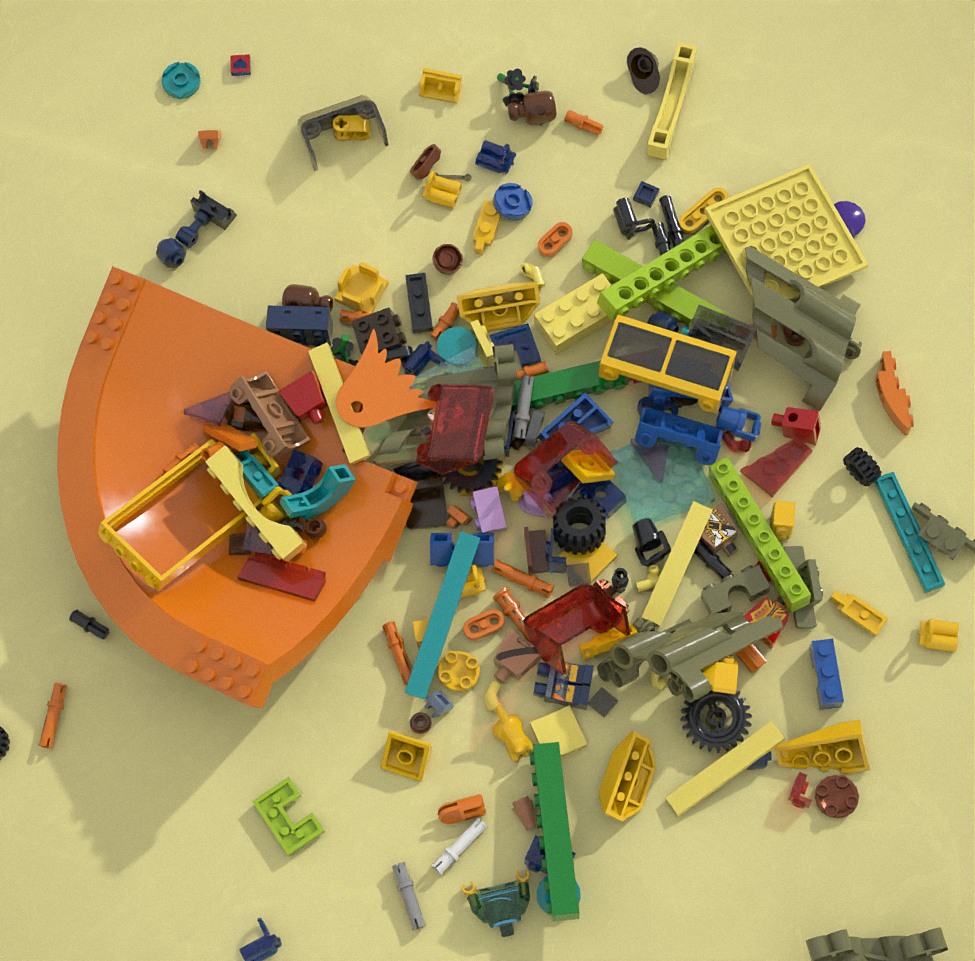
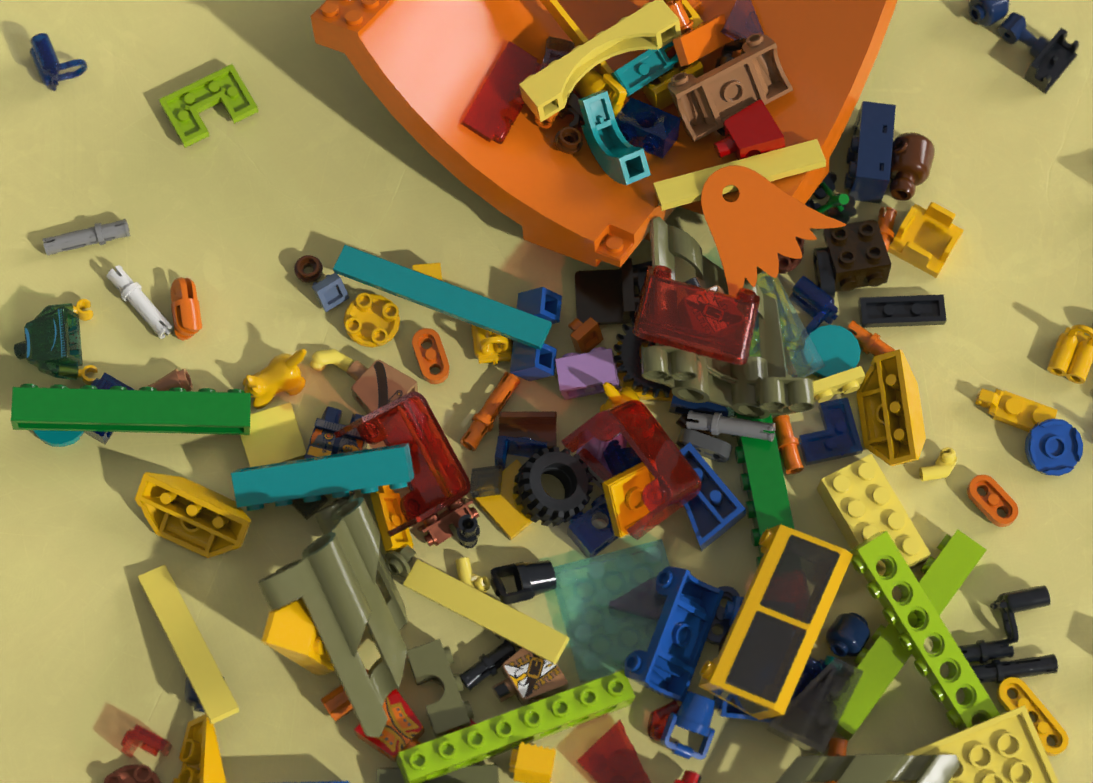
camera: 85 degrees right, 0 degrees up
(396, 645) = (411, 247): orange pin -> none
(406, 756) = (266, 247): yellow slope -> none
(447, 259) = (965, 350): copper hair -> none
(511, 608) = (452, 391): orange pin -> none
(592, 683) = (323, 475): none -> teal brick
(646, 194) = (1062, 638): dark blue tile -> none
(721, 737) = (232, 646): black gear -> none

